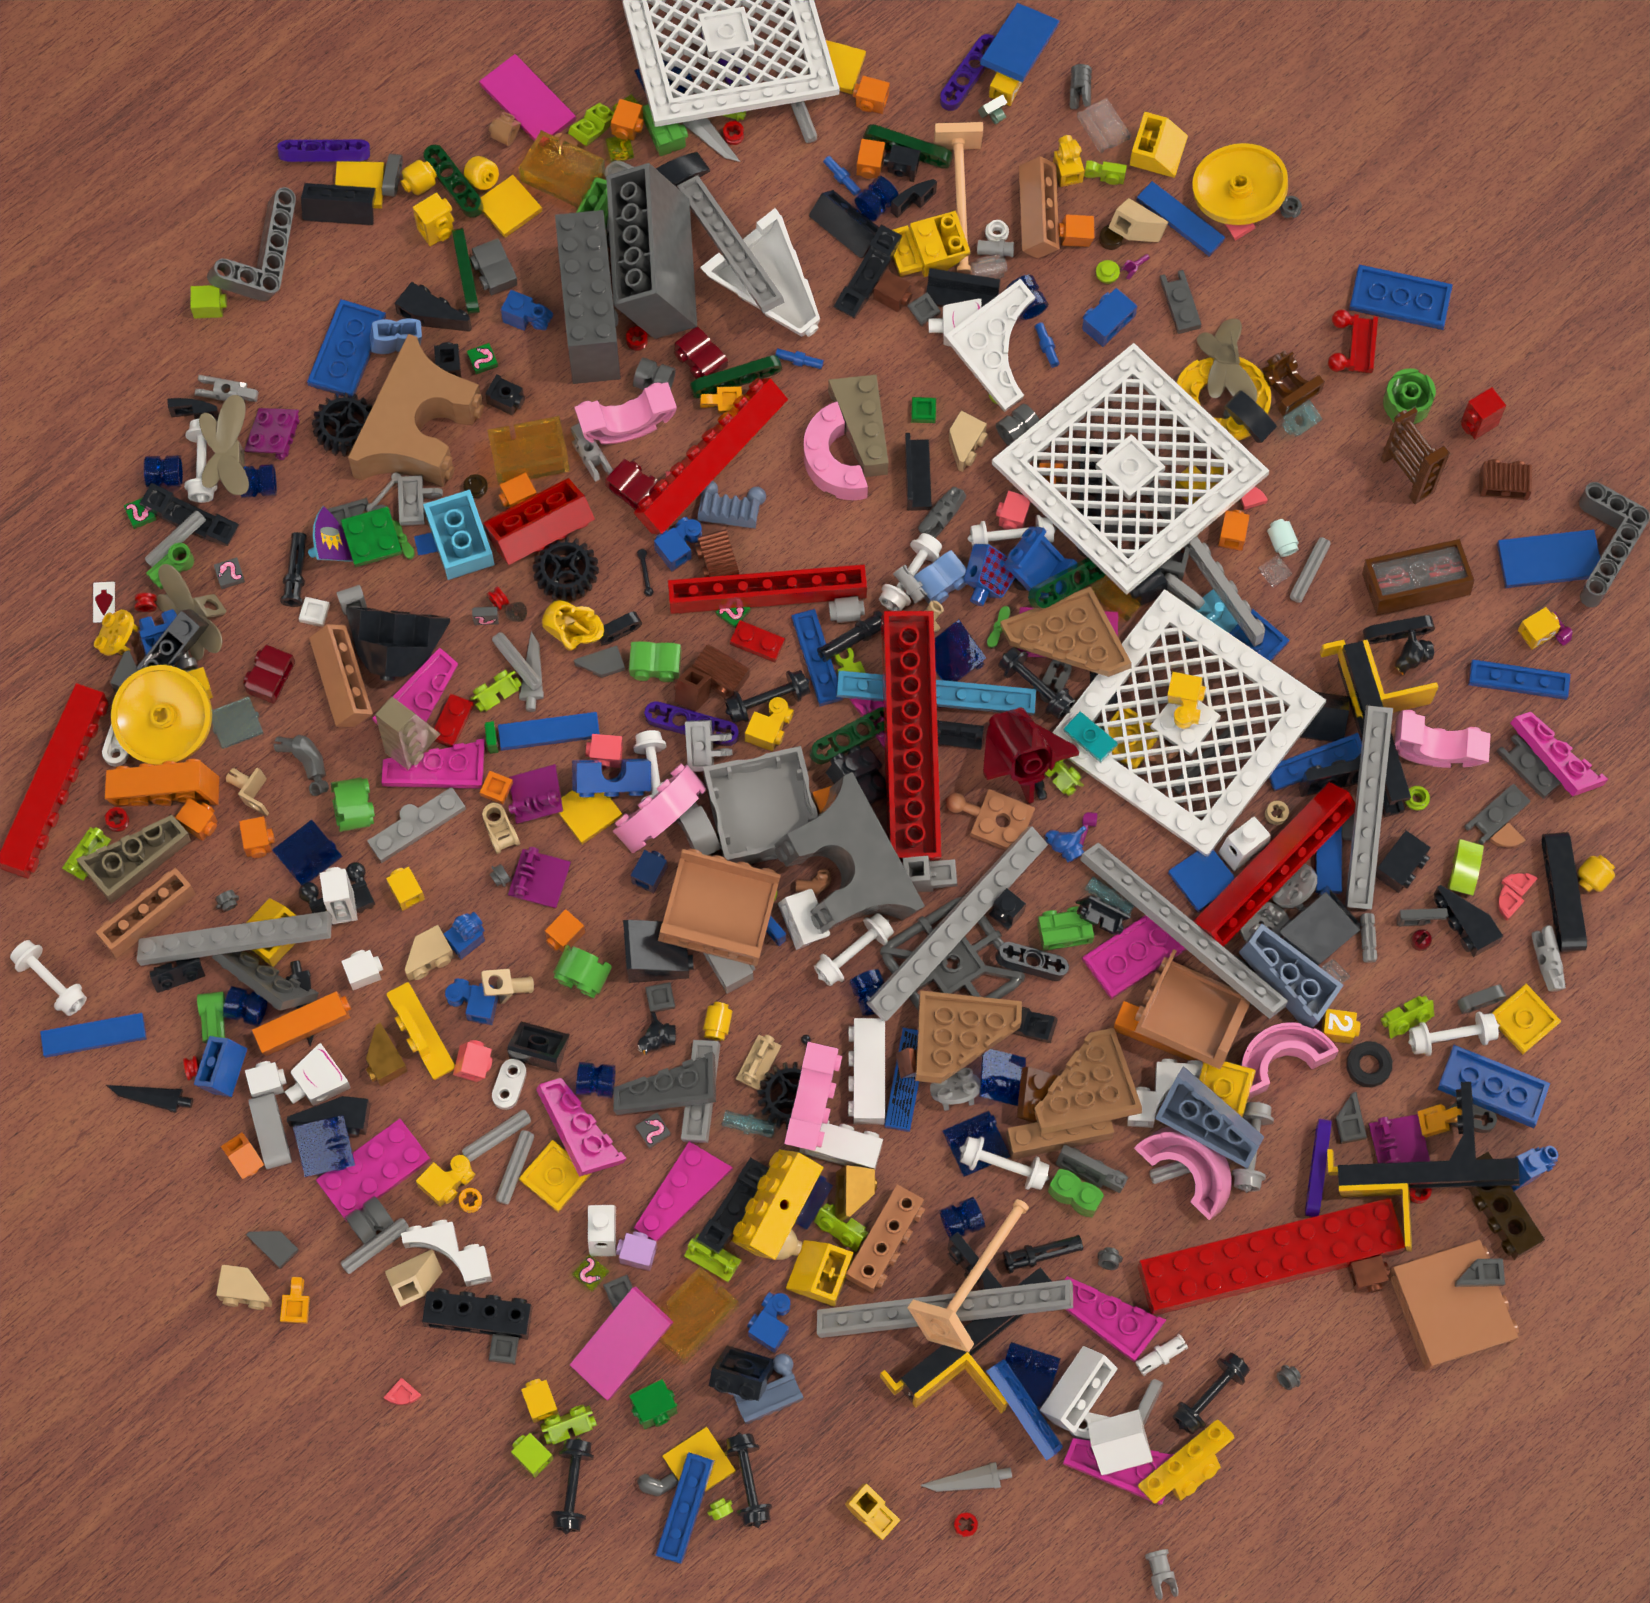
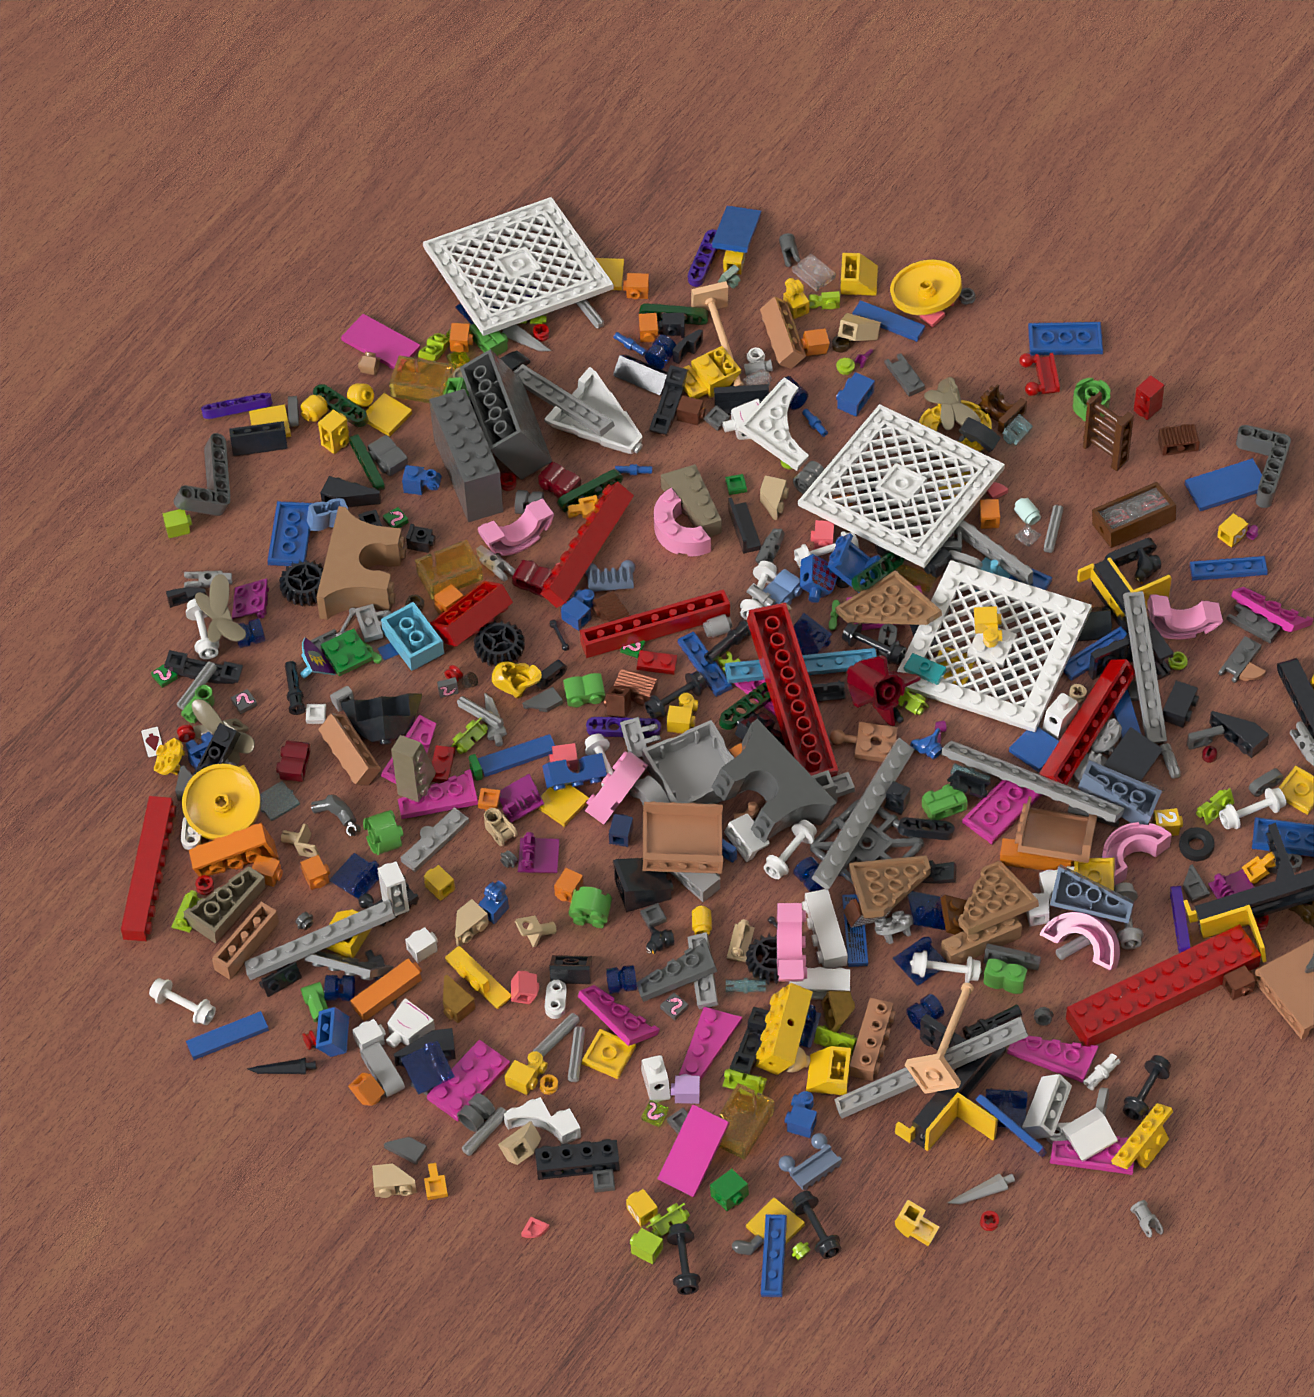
camera: 10 degrees left, 15 degrees down
(163, 470) = (180, 636): clear blue wheel -> none
(479, 1007) = (515, 944): blue brick -> none
(741, 1373) = (790, 1152): black plate -> none
(1289, 1377) = (1201, 1065): dark grey plate -> none
(1466, 867) = (1227, 697): lime slope -> none
(1509, 902) = (1266, 715): coral tile -> none
(1519, 882) = (1270, 701): coral tile -> none

